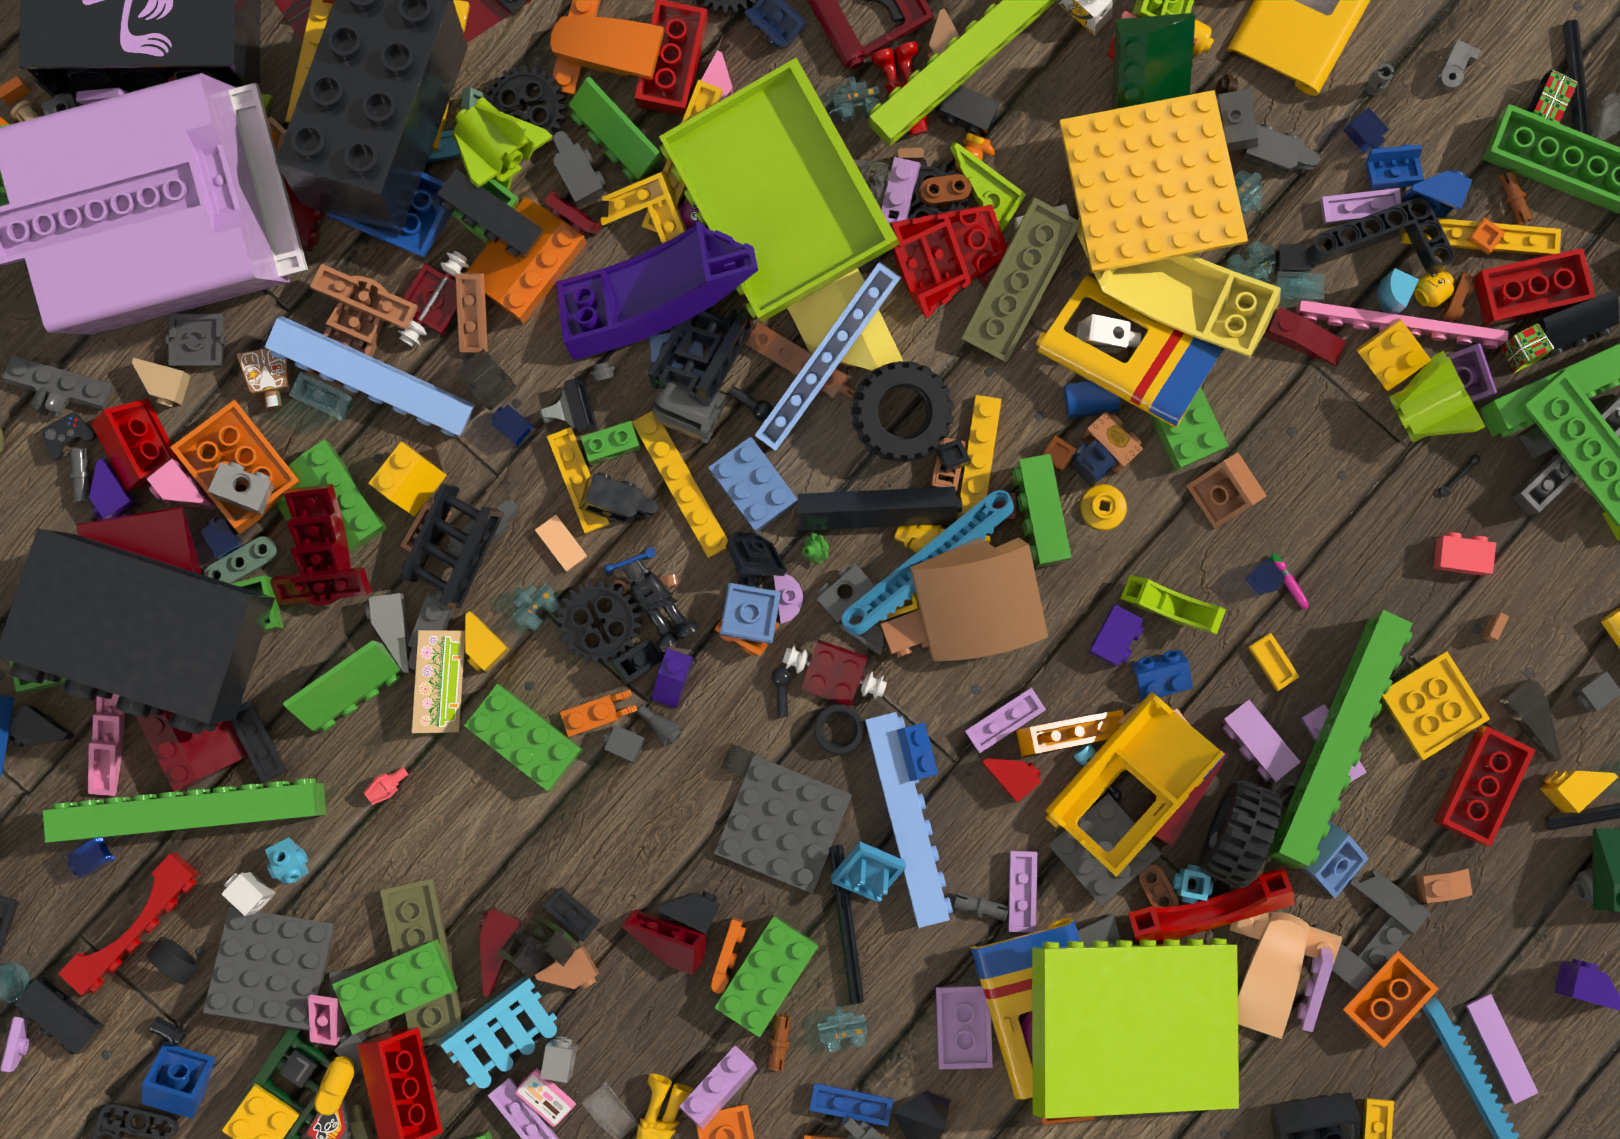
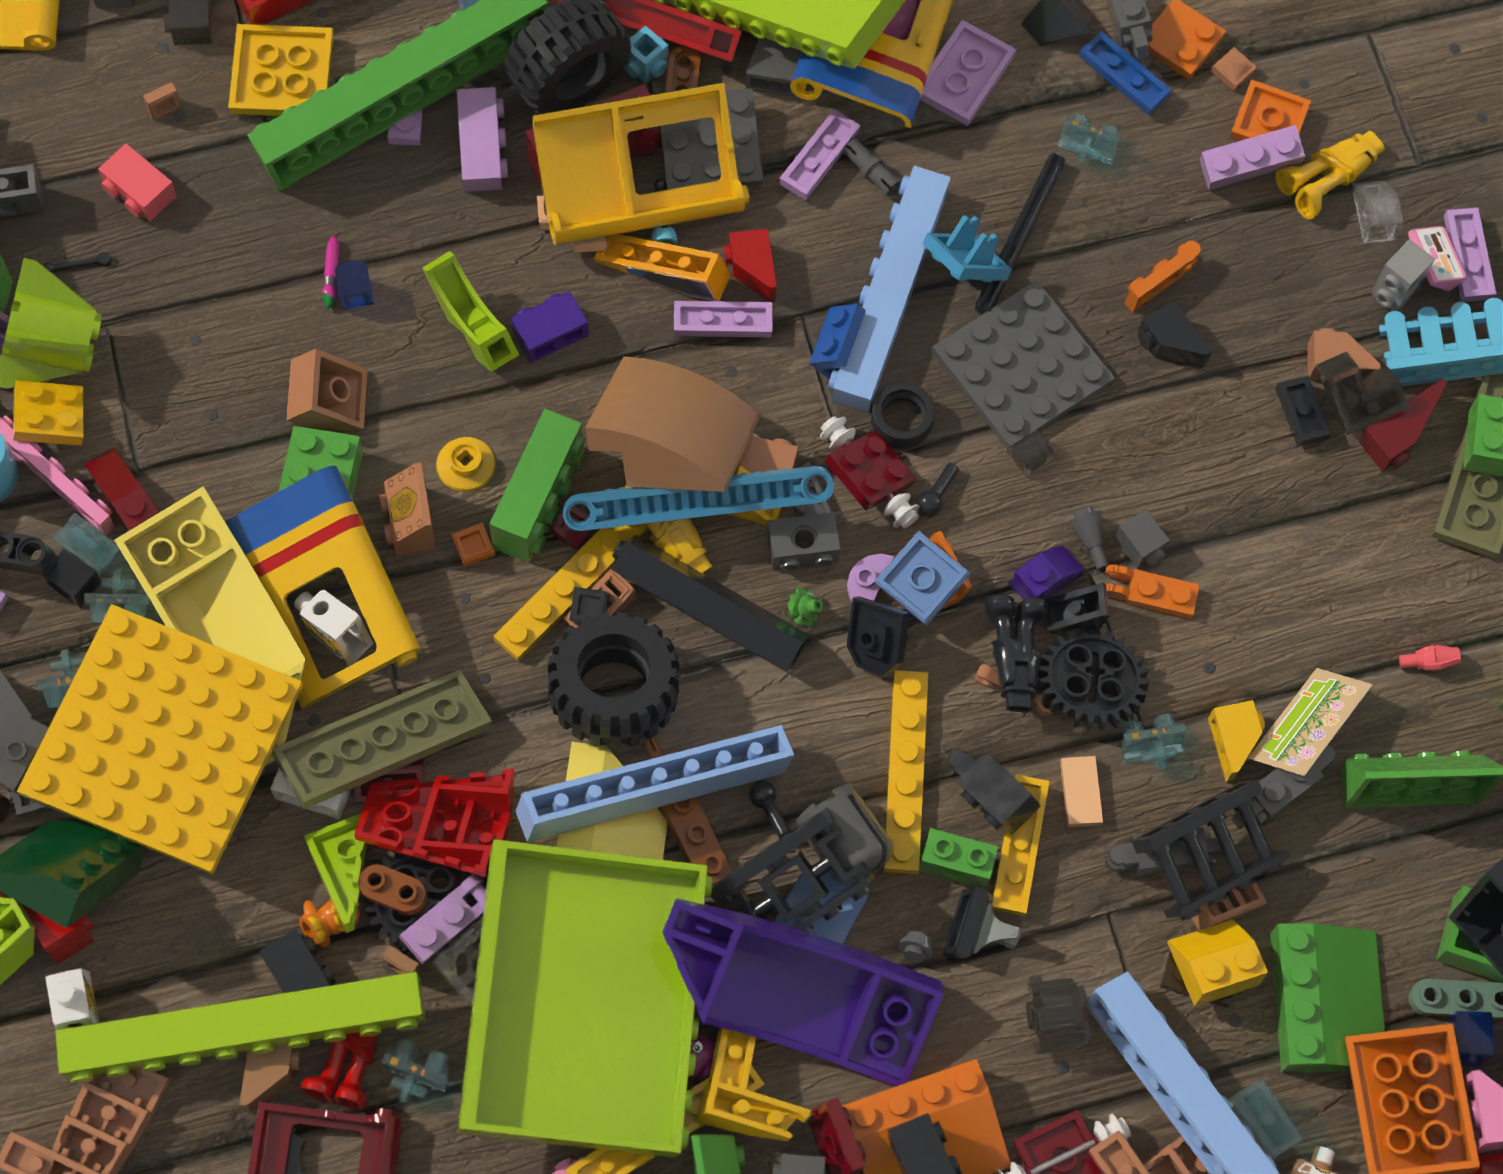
camera: 150 degrees left, 15 degrees down
(253, 499) = (1418, 1037): light grey brick -> none
(319, 551) = (1368, 939): dark red slope -> none
(390, 621) = (1329, 818): light grey slope -> none
(471, 312) = (1027, 1108): nougat plate -> none
(511, 424) = (1058, 952): clear blue brick -> none
(524, 737) = (1249, 610): bright green brick -> none
(650, 553) = (988, 721): blue hinge -> none
(670, 942) = (1219, 324): dark red slope -> none
(753, 485) = (828, 714): medium blue brick -> none
(766, 976) = (1134, 231): bright green brick -> none
(779, 1042) = (1161, 168): dark orange pin -> none
(1088, 399) = (408, 580): blue brick -> none
(1092, 462) = (448, 501): dark blue hinge -> none
(1163, 674) = (528, 264): blue bracket -> none
(1273, 662) = (407, 208): yellow tile -> none

